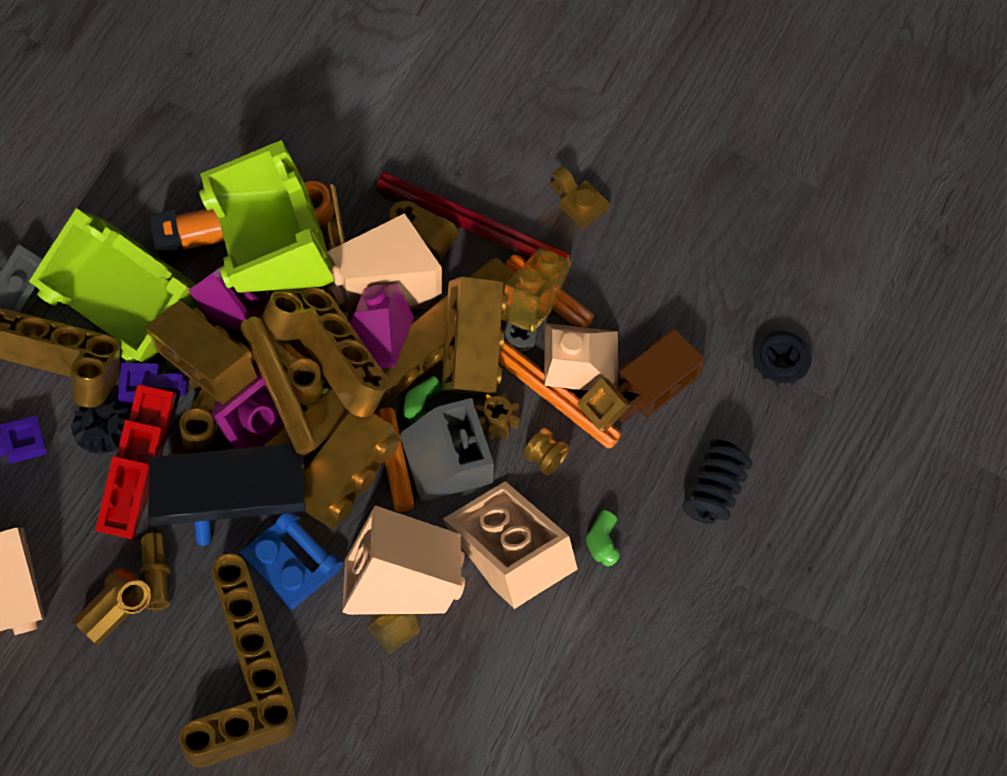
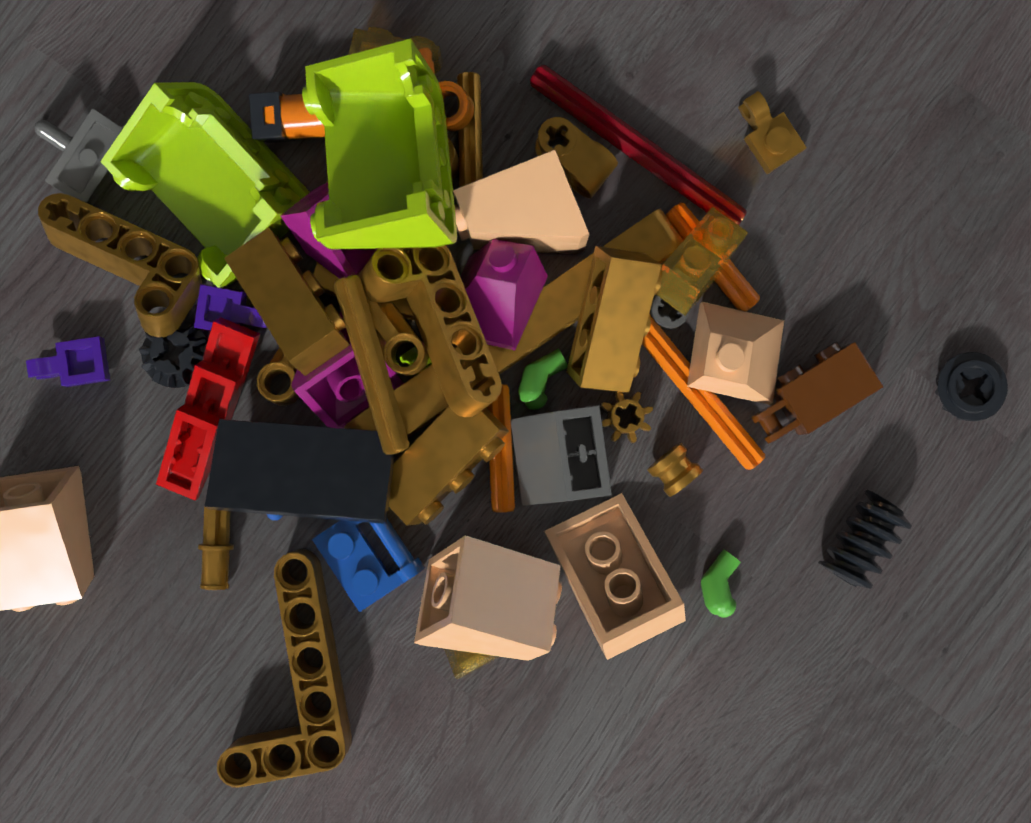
camera: 20 degrees right, 25 degrees up
(109, 606) = (174, 580): pearl gold piece -> none
(603, 404) = (753, 430): pearl gold plate -> none

